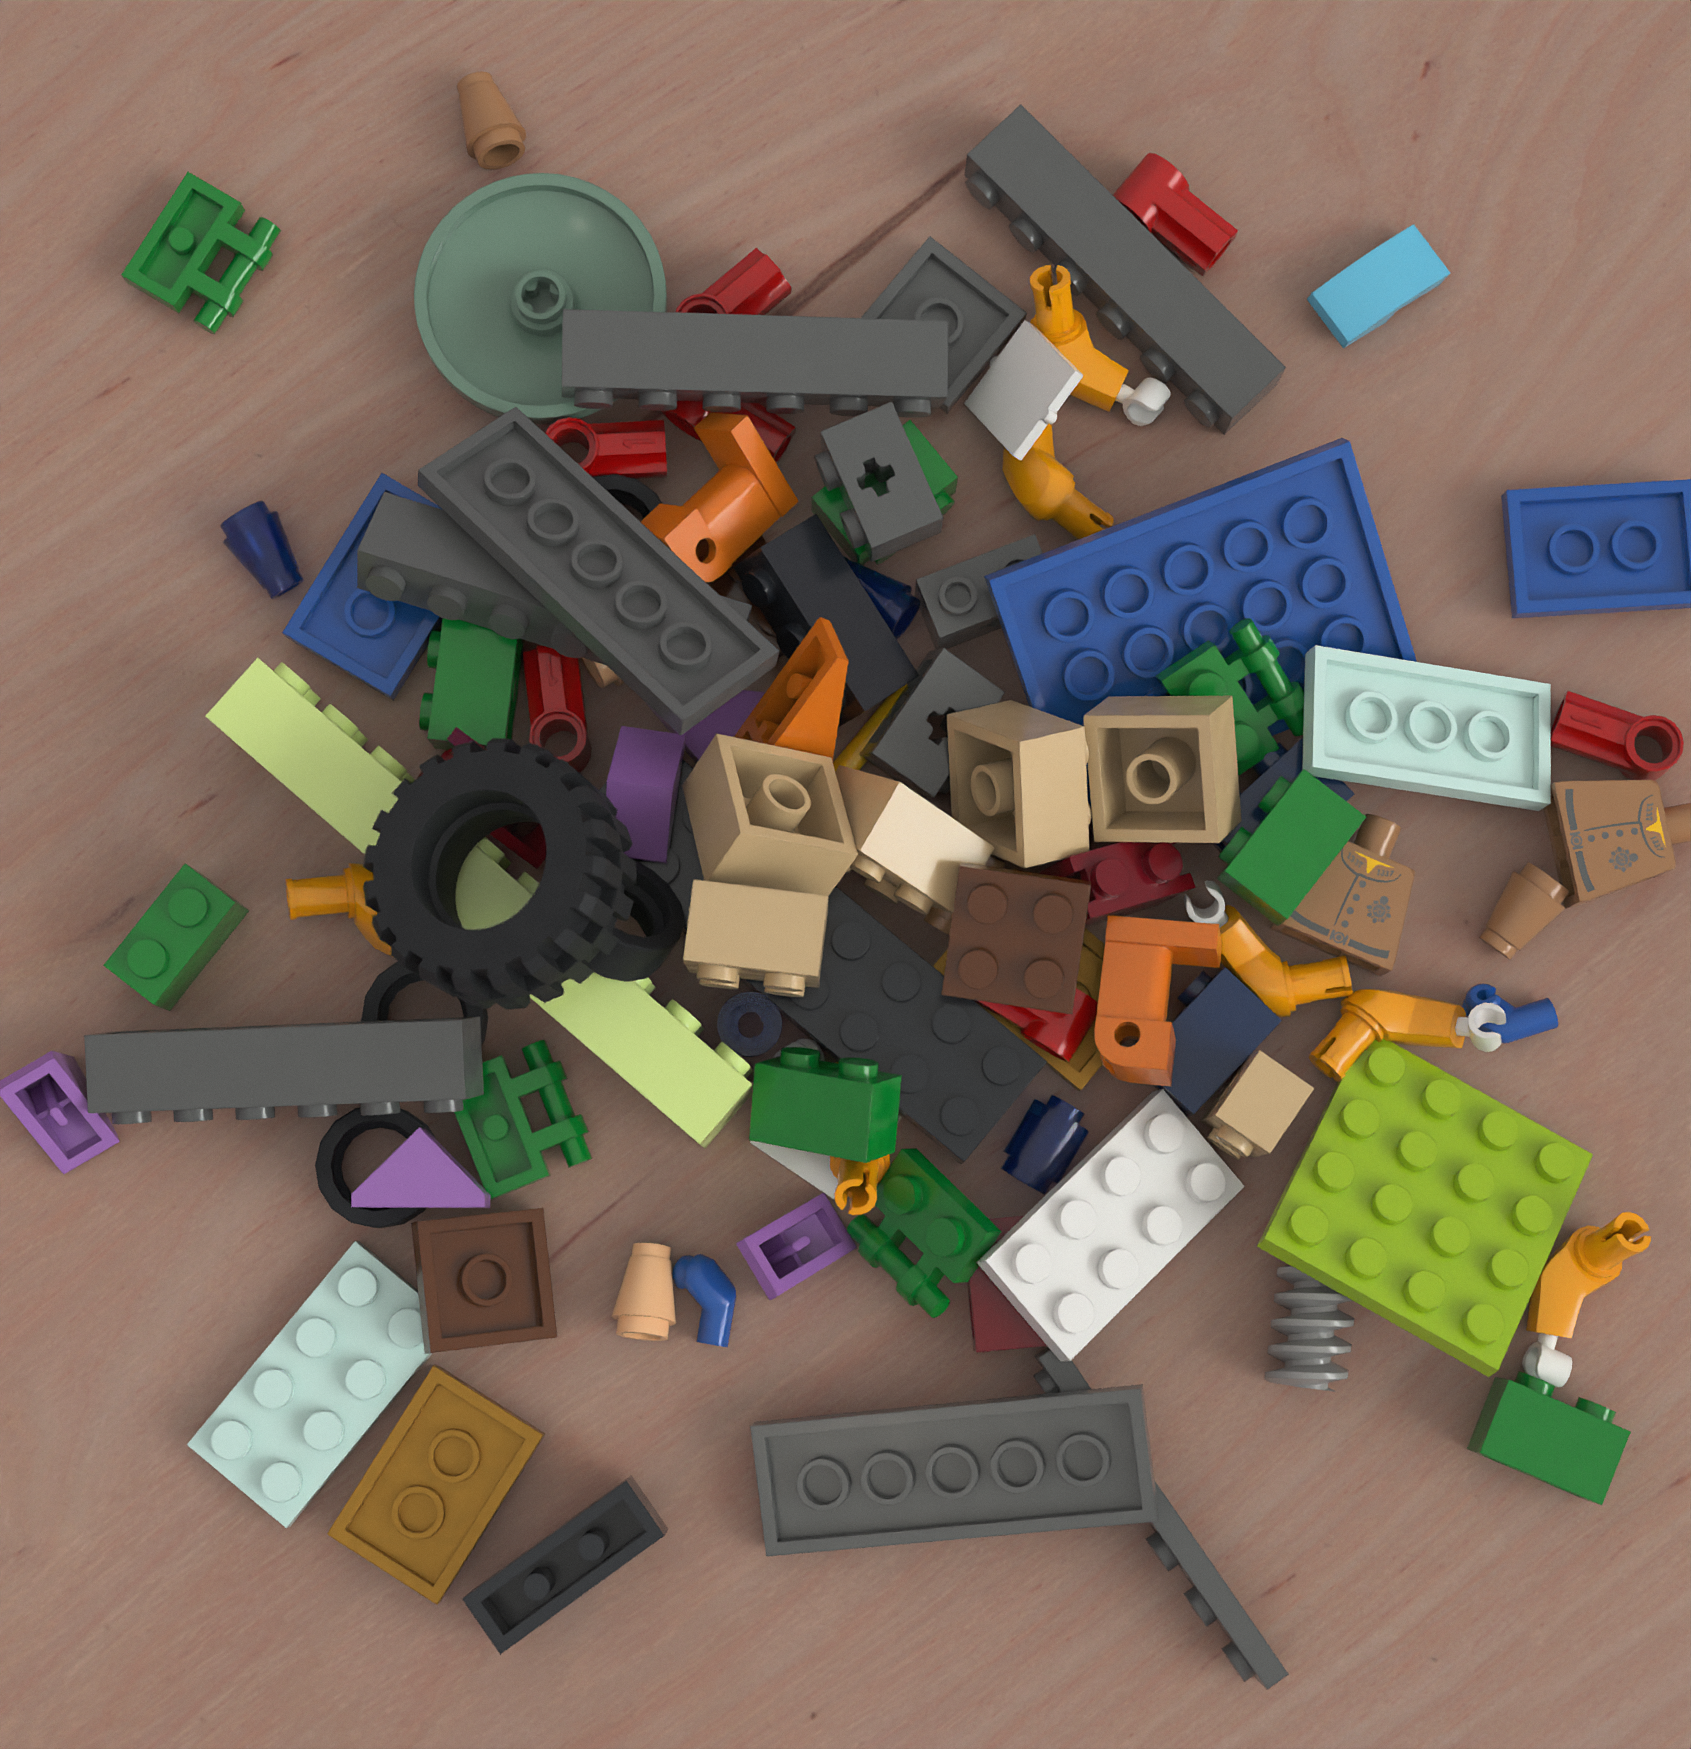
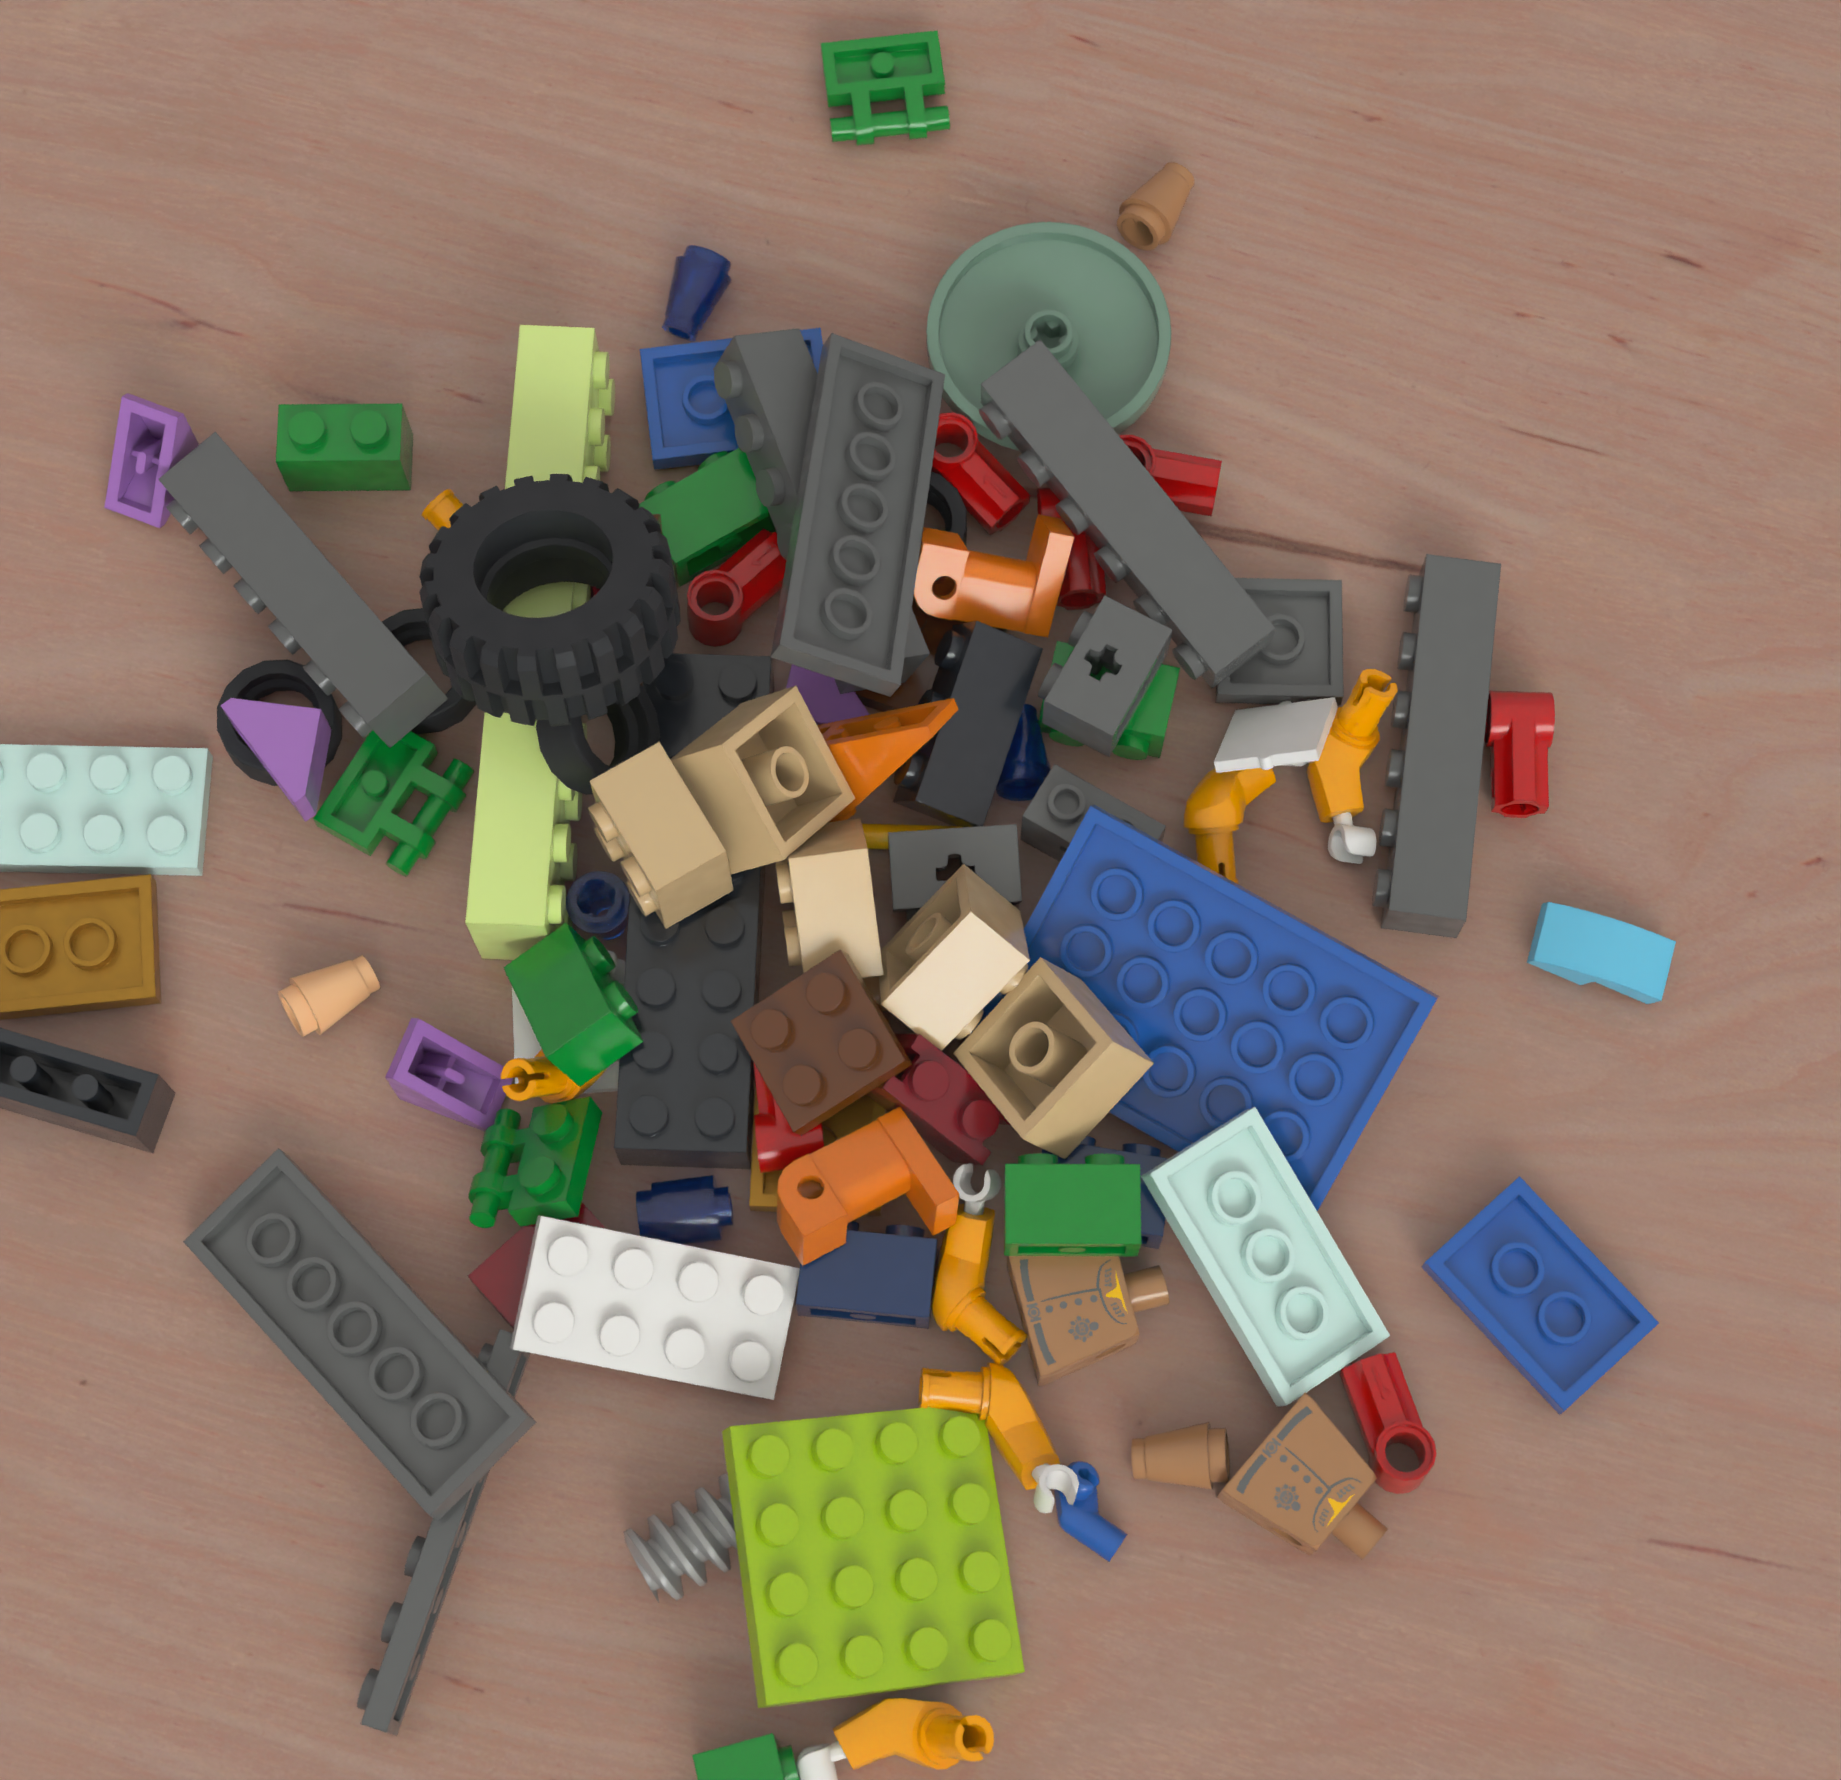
camera: 55 degrees right, 10 degrees down
(483, 1280) = (245, 861): reddish brown plate -> none
(645, 788) = (712, 678): medium lavender slope -> none
(712, 1291) = (368, 1045): blue arm -> none
(1209, 674) = (1146, 1106): green plate -> none
(1255, 1107) = (837, 1348): tan brick -> none

